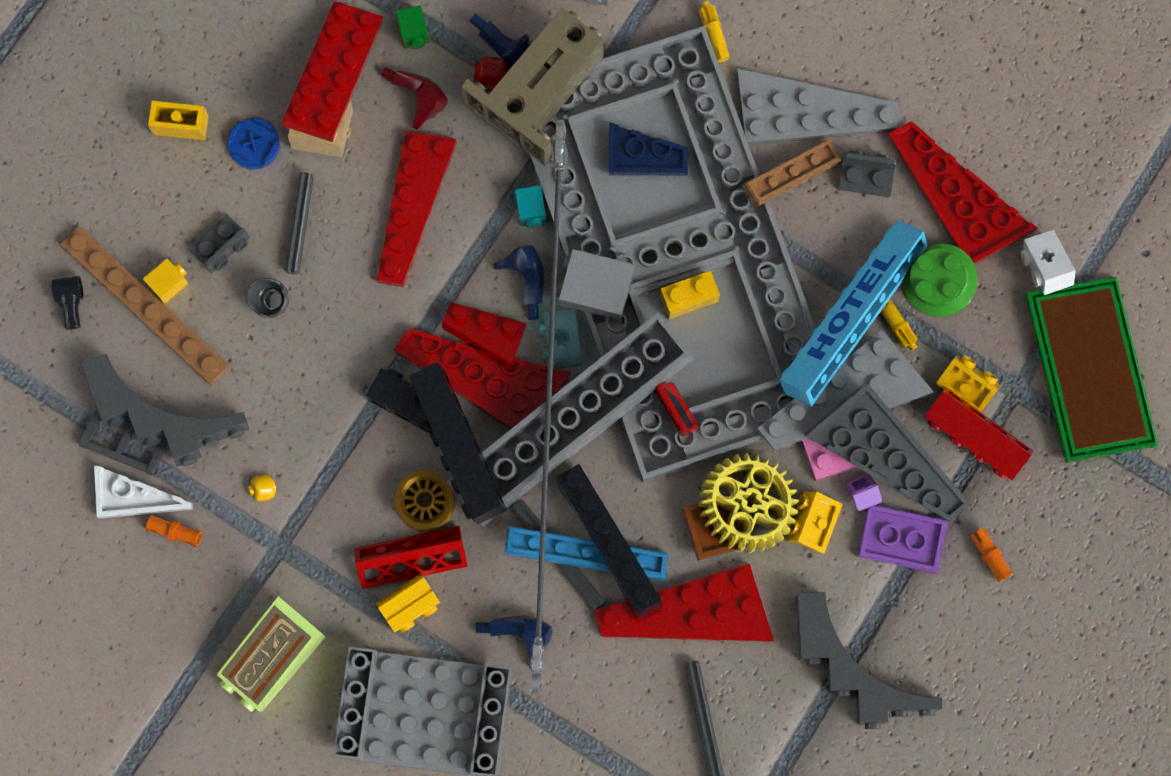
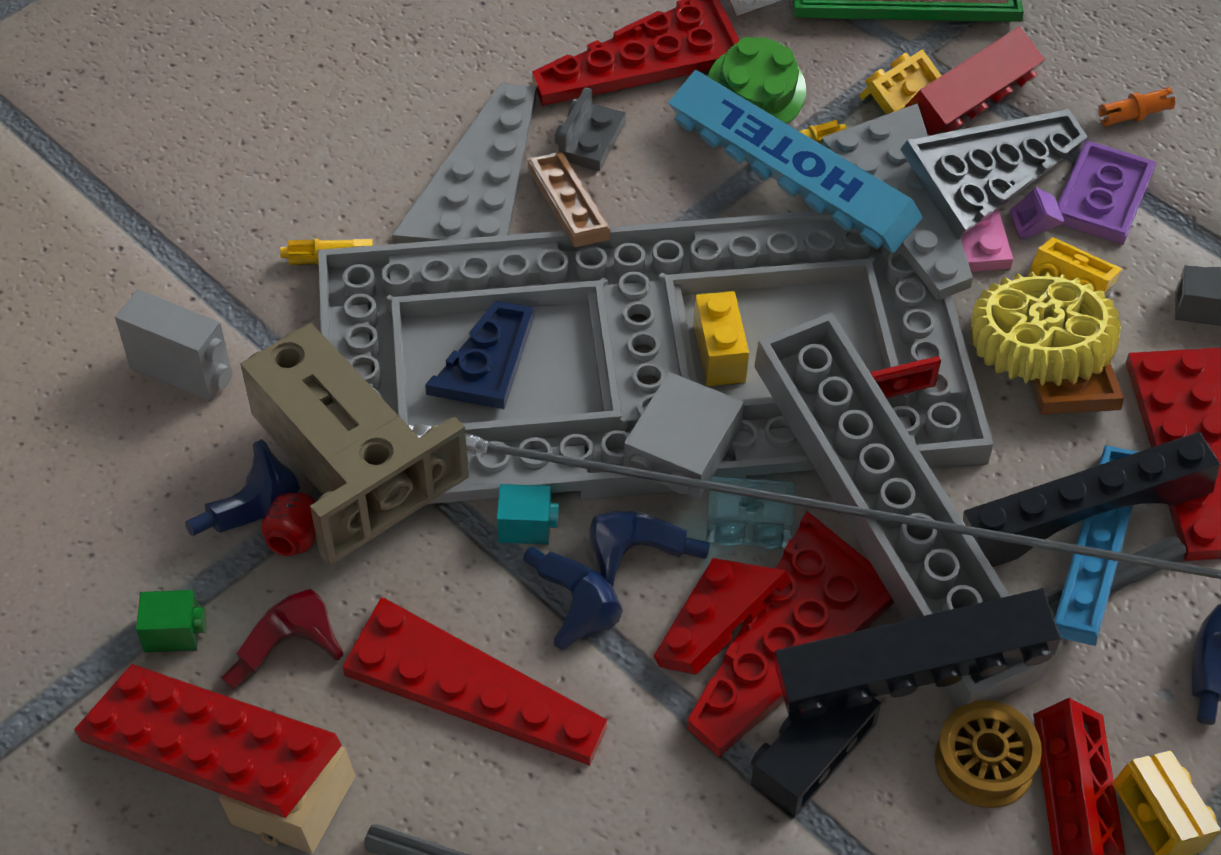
camera: 80 degrees left, 25 degrees down
(477, 259) = (593, 598): none -> dark blue animal

